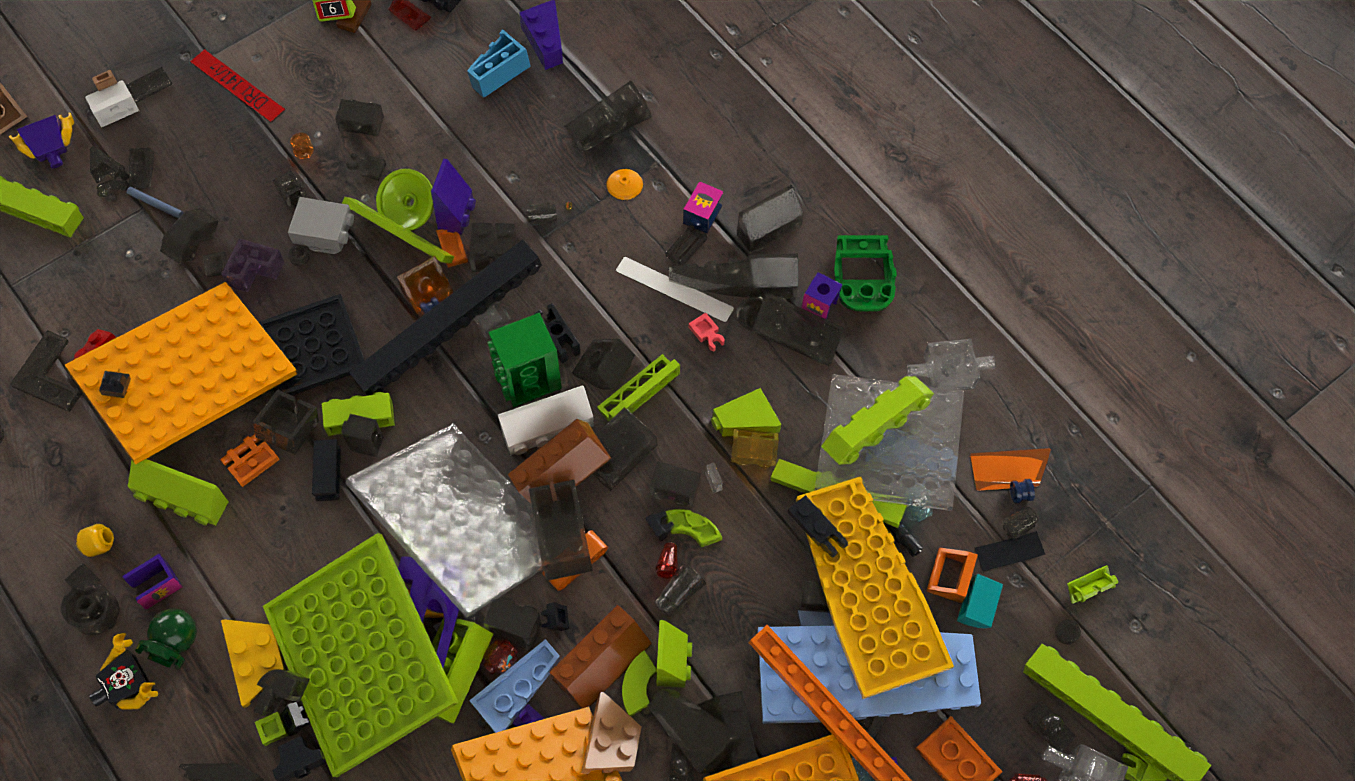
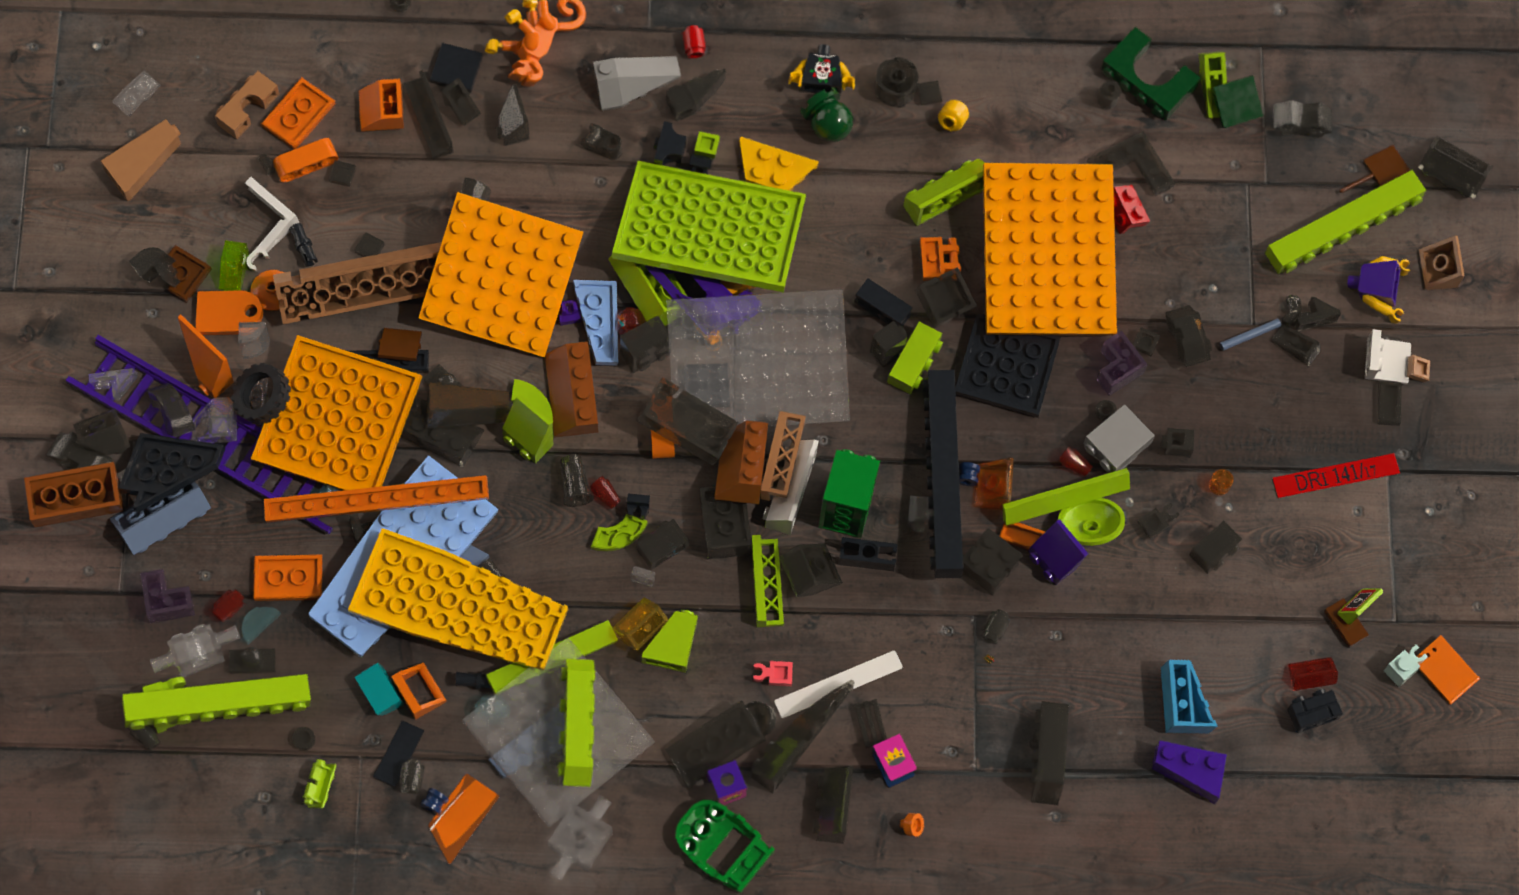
camera: 125 degrees right, 5 degrees up
(114, 384) = (1062, 186): black tile -> none
(159, 591) = (877, 145): dark purple piece -> none
(279, 685) = (729, 165): clear smoke brick -> none
(361, 248) = (1075, 461): none -> clear red cone
(522, 452) = (775, 455): none -> medium nougat fence
(557, 617) = (628, 382): black tile -> none
(612, 739) = (505, 349): medium nougat wing -> none
(624, 184) = (976, 723): light orange piece -> none
(737, 169) = (912, 824): none -> orange tile
(816, 525) = (532, 598): black hinge -> none
(1014, 752) = (257, 621): none -> clear light blue tile

